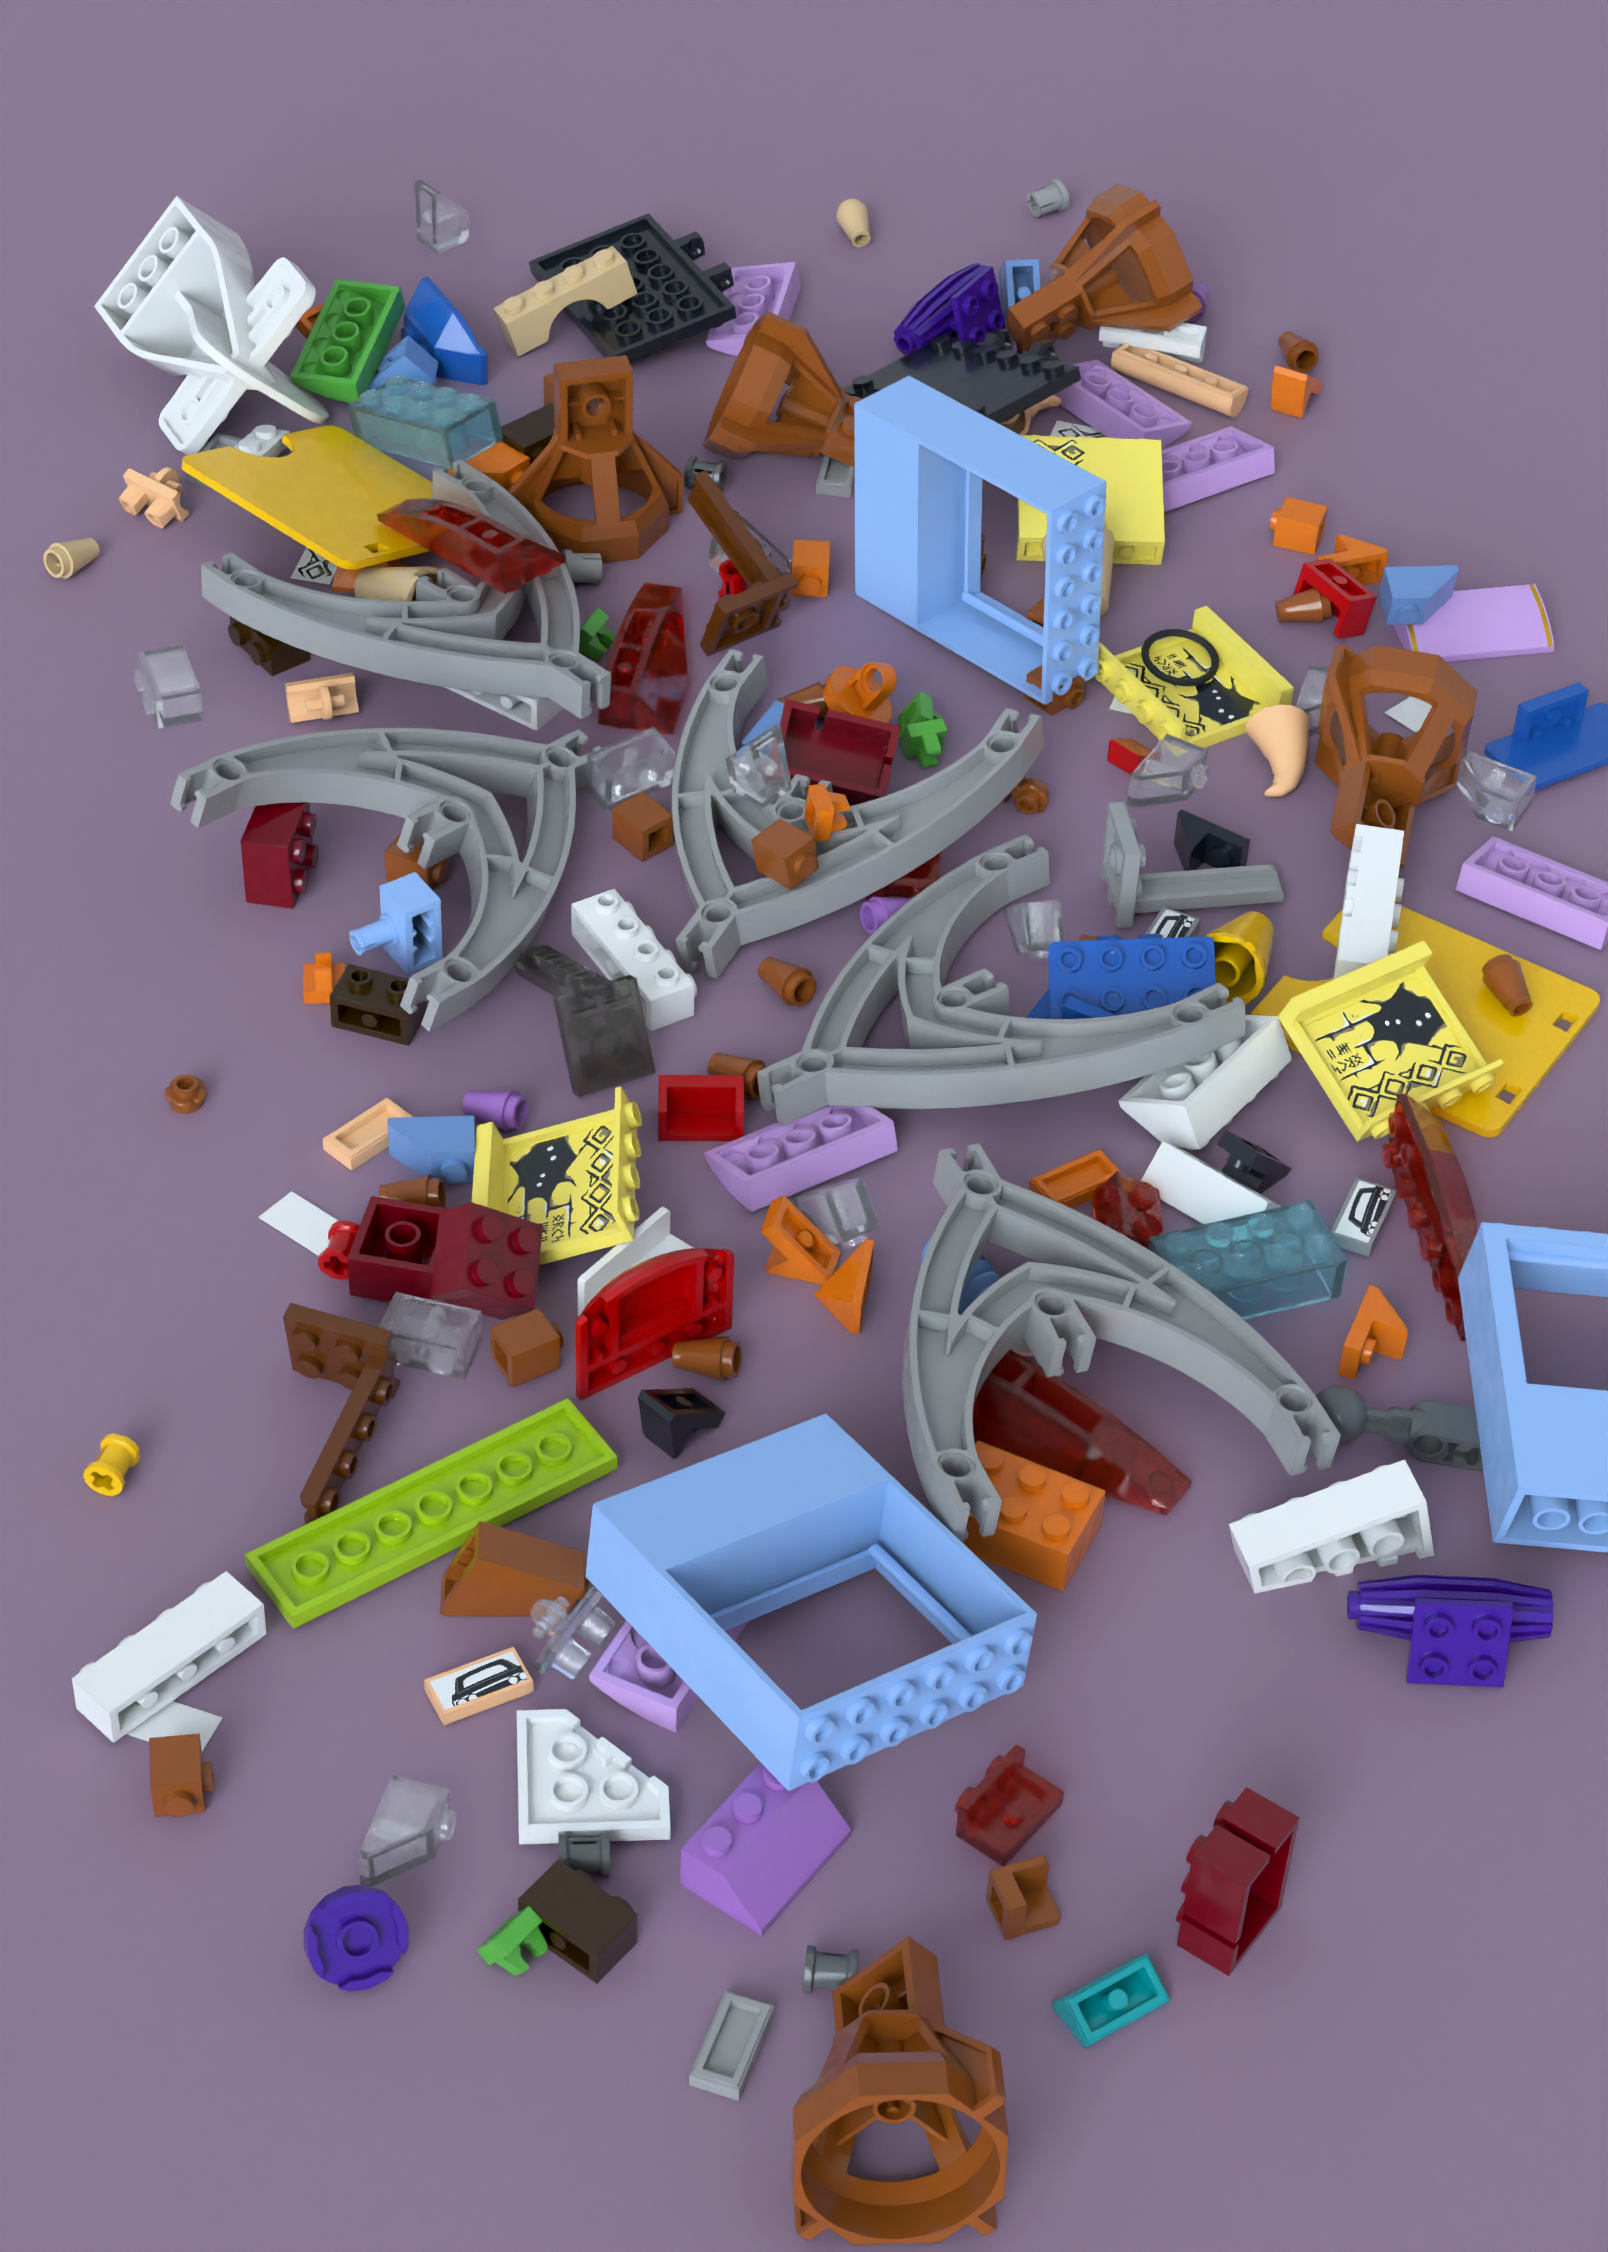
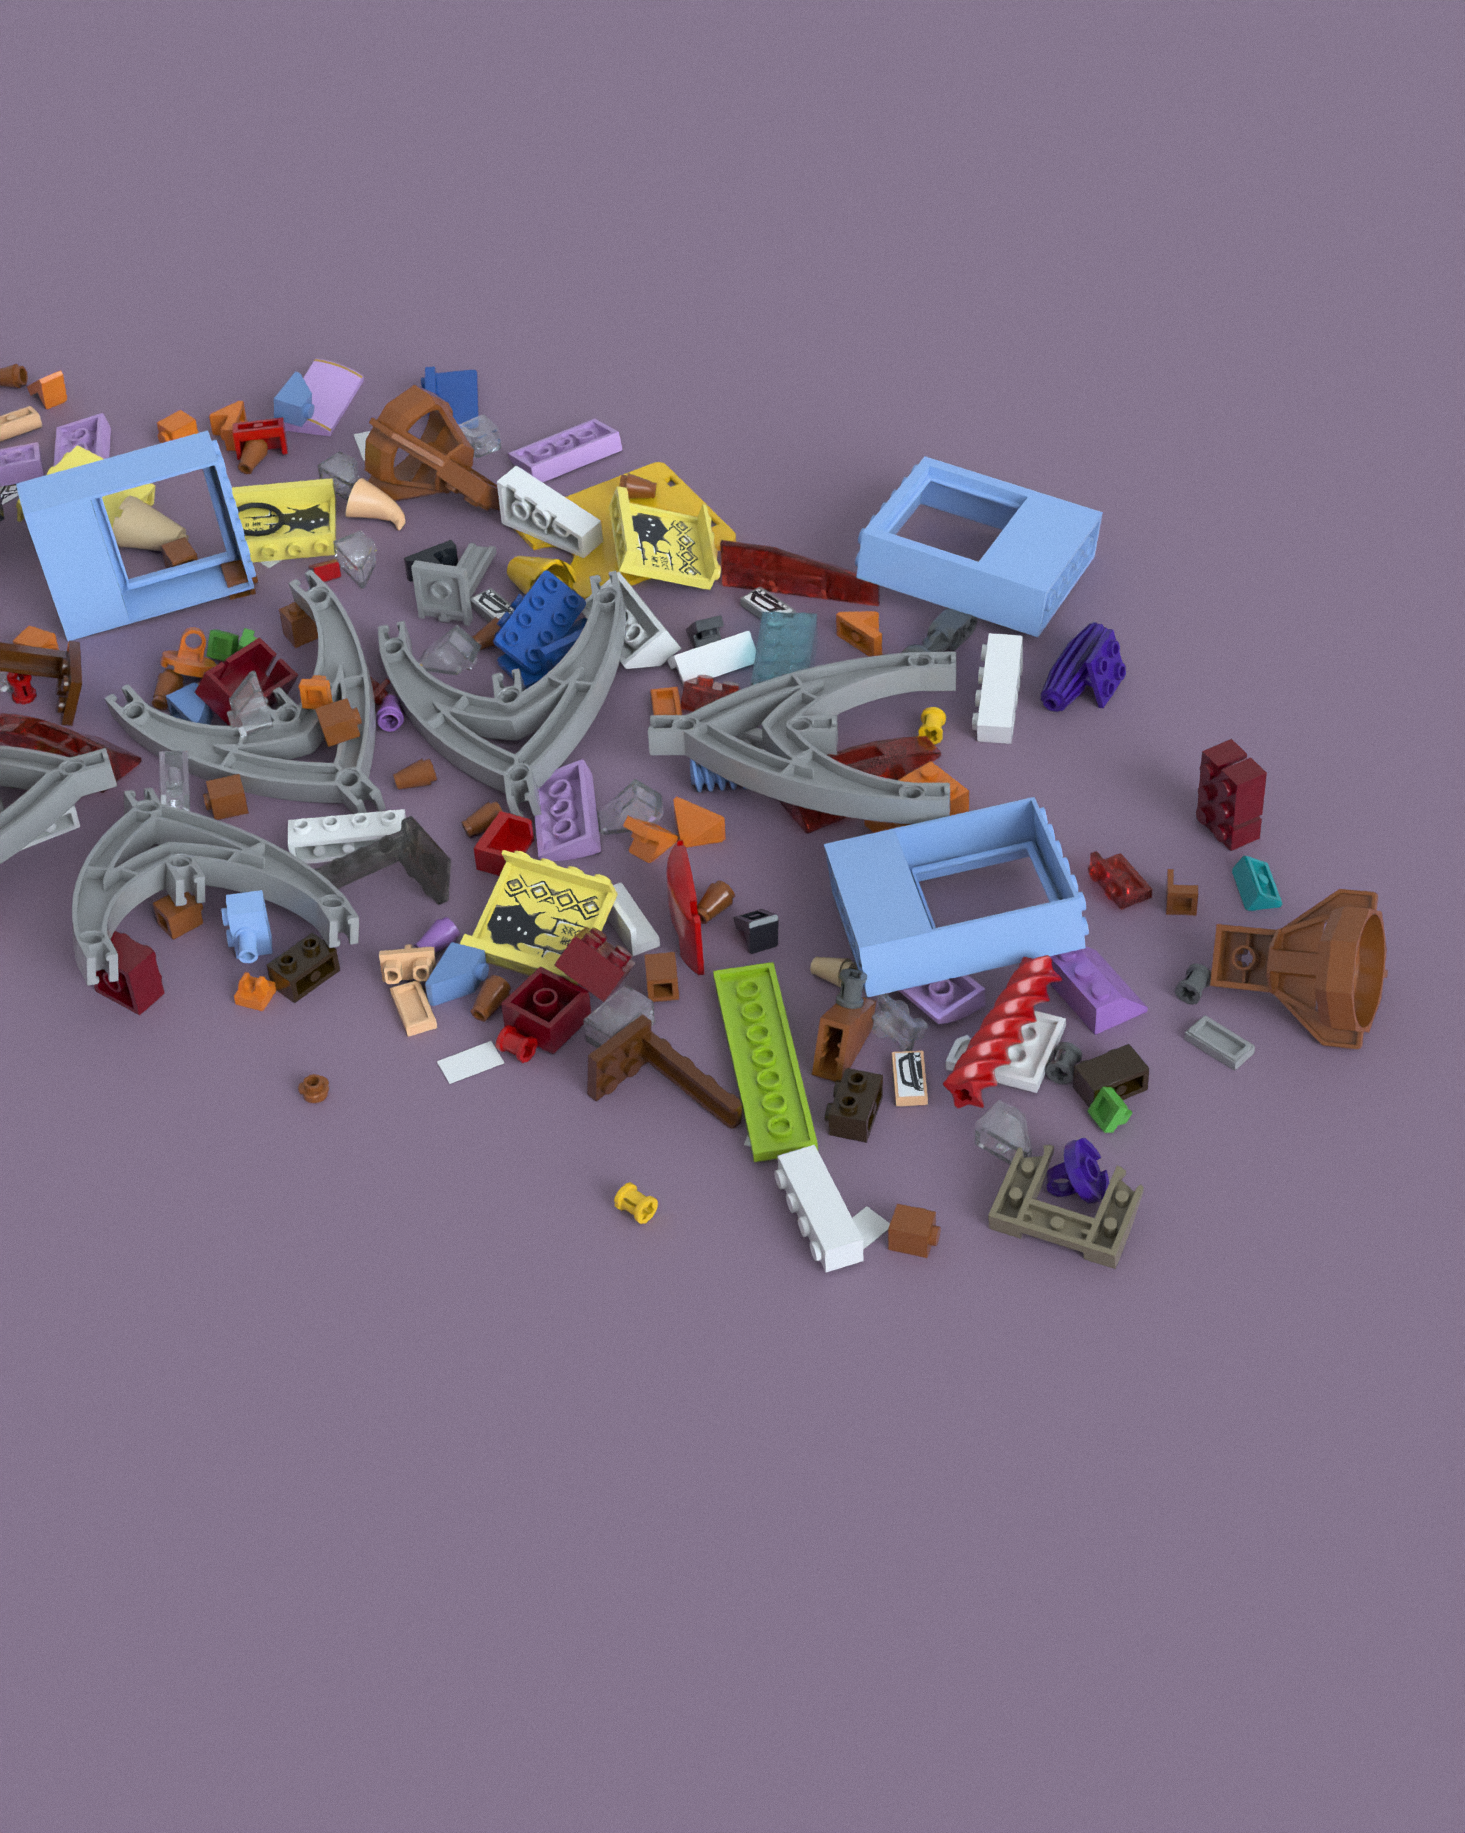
camera: 60 degrees left, 0 degrees up
(246, 1997) = (1098, 1238): none -> dark tan wedge
(388, 1637) = (854, 1105): none -> dark brown brick
(427, 1091) = (407, 964): none -> light nougat hips
(557, 1546) = (851, 988): none -> dark grey bush
(579, 1748) = (1000, 1030): none -> red piece
(1217, 1480) = (932, 722): none -> yellow bush

